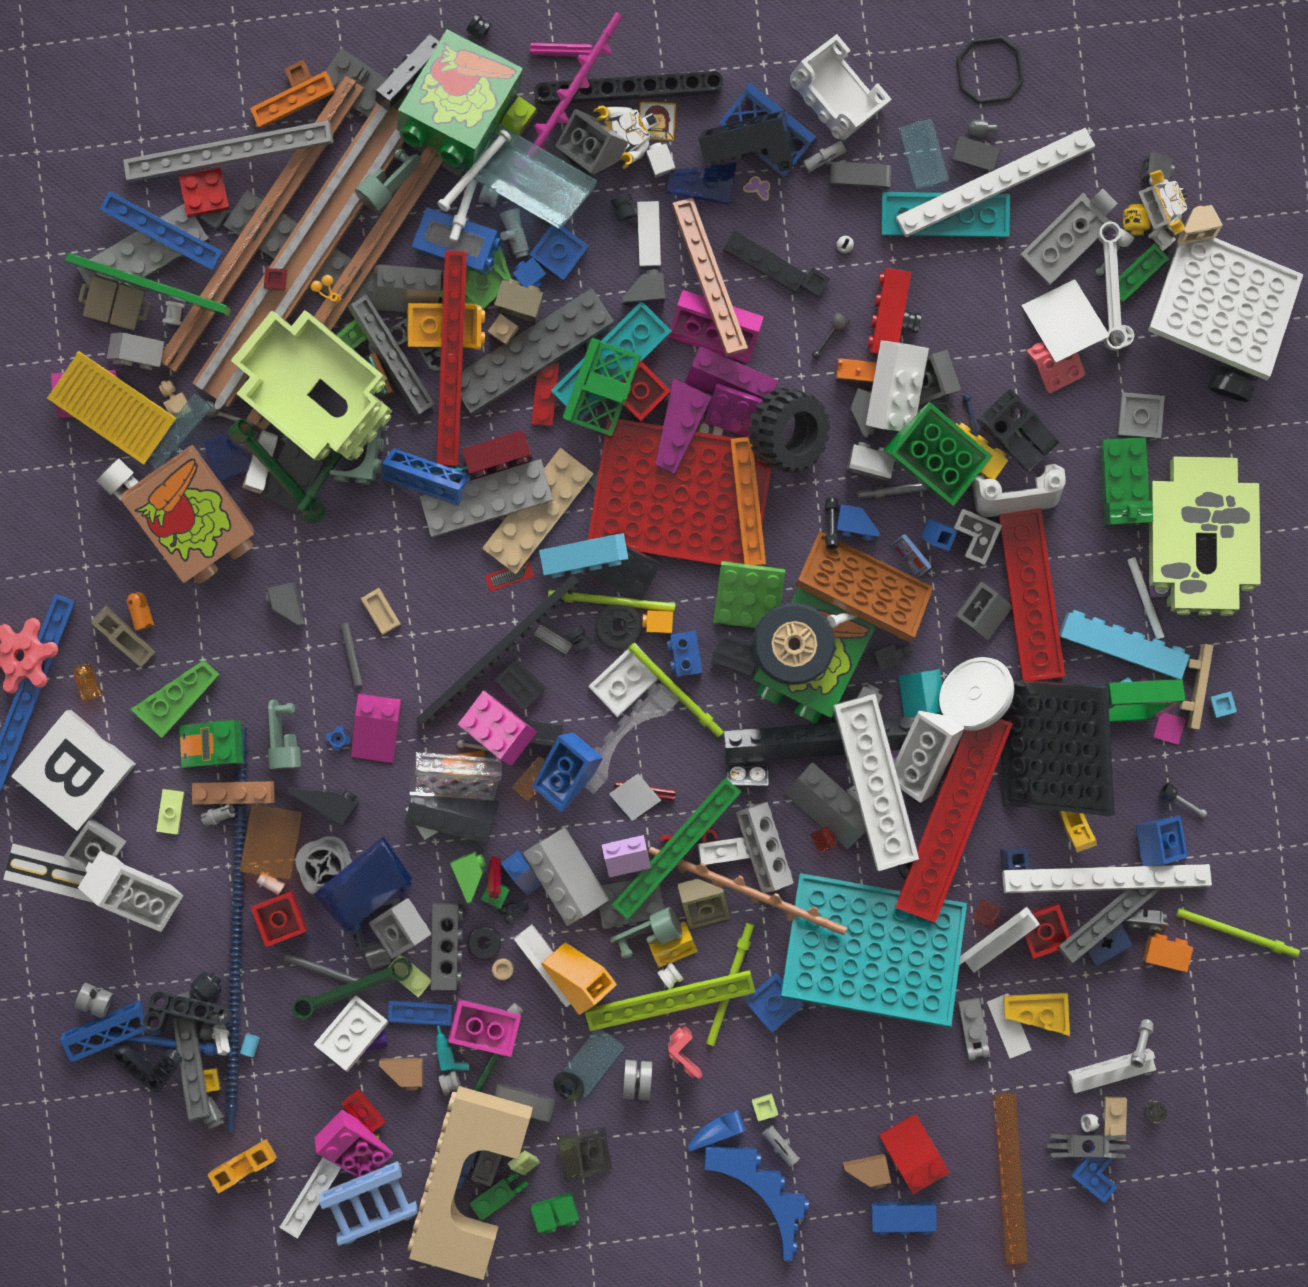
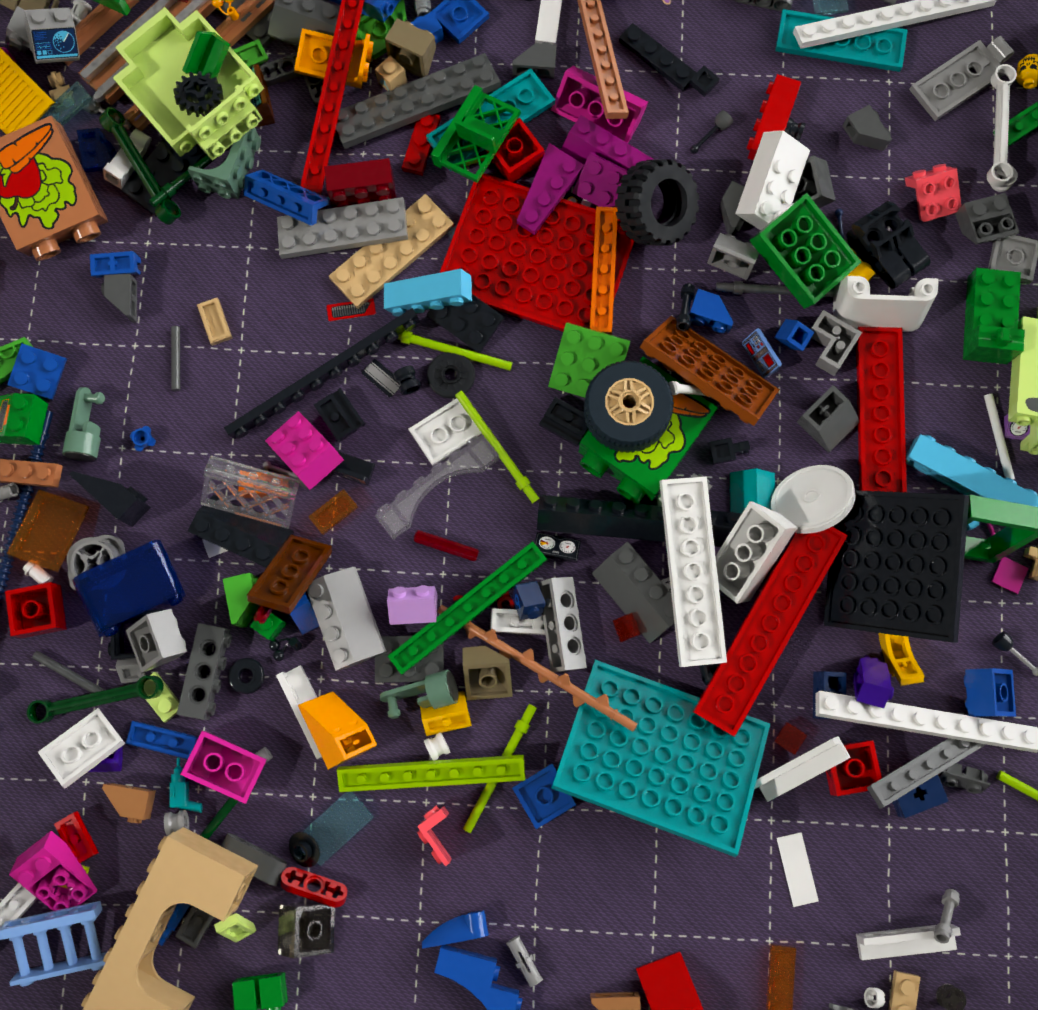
camera: 15 degrees right, 10 degrees down
(164, 357) = (52, 35): none -> slope
(224, 692) = (37, 371): none -> blue plate
(273, 574) = (114, 263): none -> blue hinge
(329, 361) = (206, 54): none -> green panel
(334, 397) = (198, 93): none -> black gear
(376, 728) = (183, 432): dark pink slope -> none
(390, 355) = (276, 77): dark grey plate -> none
(496, 1196) = (199, 961): green hinge -> none
(502, 969) = (260, 708): tan tile -> none
(509, 846) = (289, 574): none -> reddish brown plate
(566, 770) = (367, 505): blue slope -> none
(568, 1120) = (317, 896): none -> red beam
(635, 797) = (434, 549): white sticker -> none
(637, 1080) = (378, 856): light grey wheel -> none
(658, 621) = (492, 375): light orange brick -> none
(685, 653) = (513, 412): blue brick -> none
(730, 831) = (528, 600): none -> dark blue brick
(765, 1107) = (514, 913): yellowish green plate -> none
(841, 241) = (742, 55): white hinge -> none
(855, 371) = (730, 170): orange hinge -> none
(973, 1028) = (758, 865): light grey plate -> none
(982, 308) = (866, 129): none -> dark grey slope
(1041, 1010) = (834, 857): yellow wing -> none
(1052, 852) = (872, 682): none -> dark purple hinge
(1065, 320) = (949, 152): white sticker -> none
(1110, 386) = (987, 219): none -> dark grey slope
(1124, 241) = (1016, 89): white hinge -> none
(1167, 952) = (985, 818): orange brick -> none

